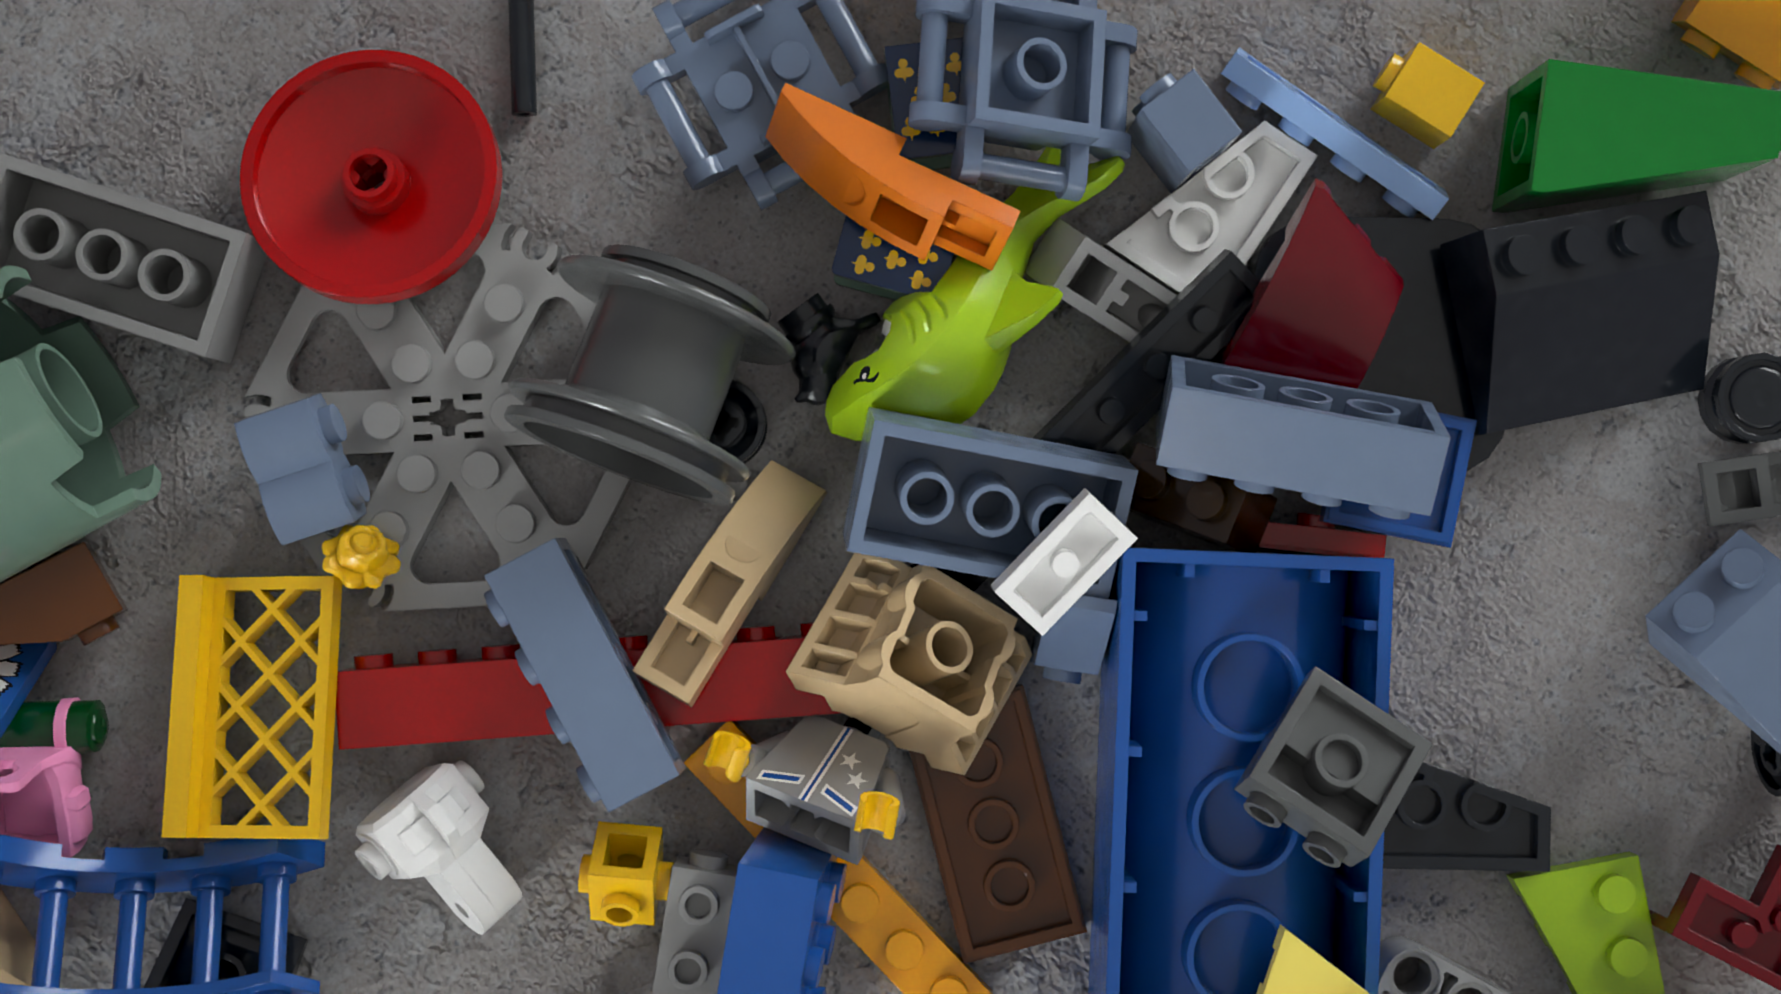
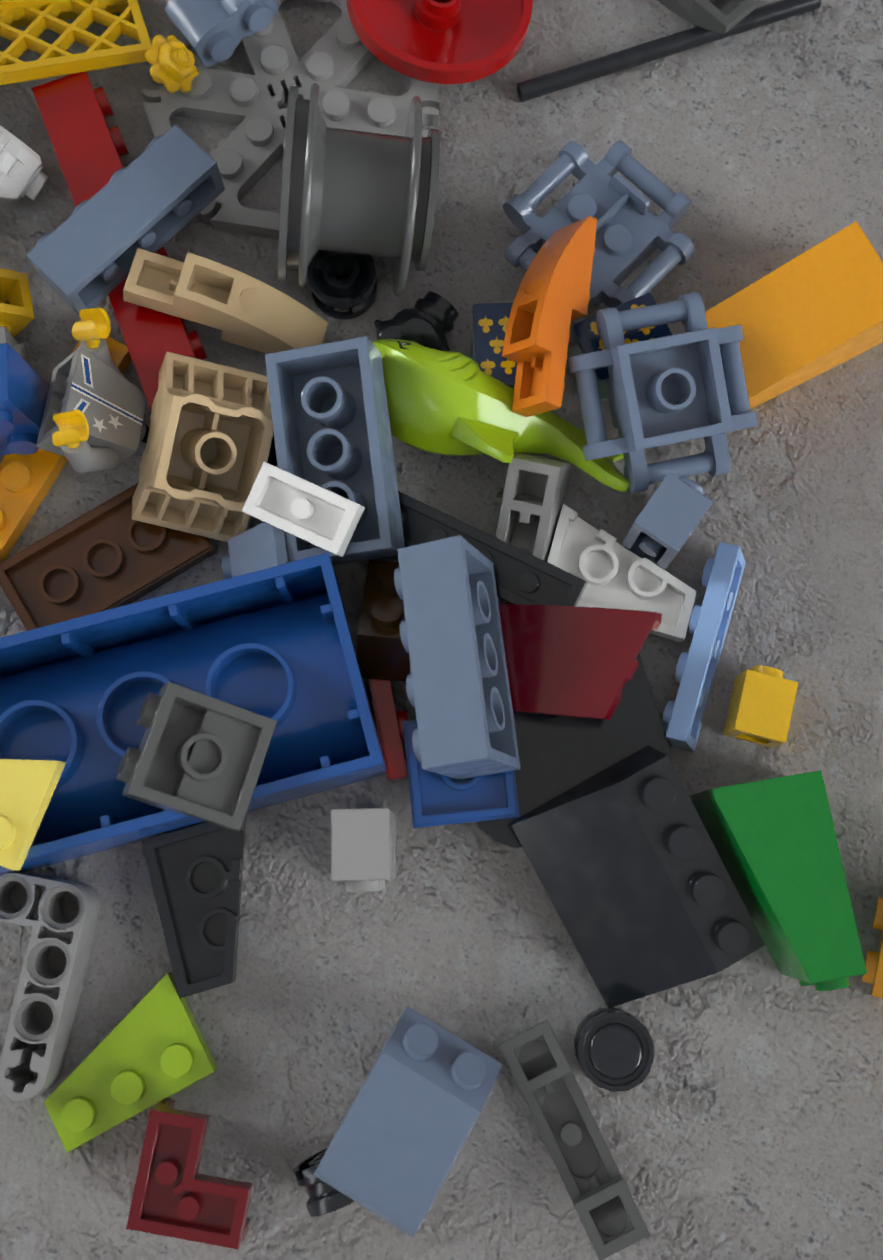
camera: 75 degrees right, 10 degrees down
(1468, 608) = (363, 848): none -> light grey brick

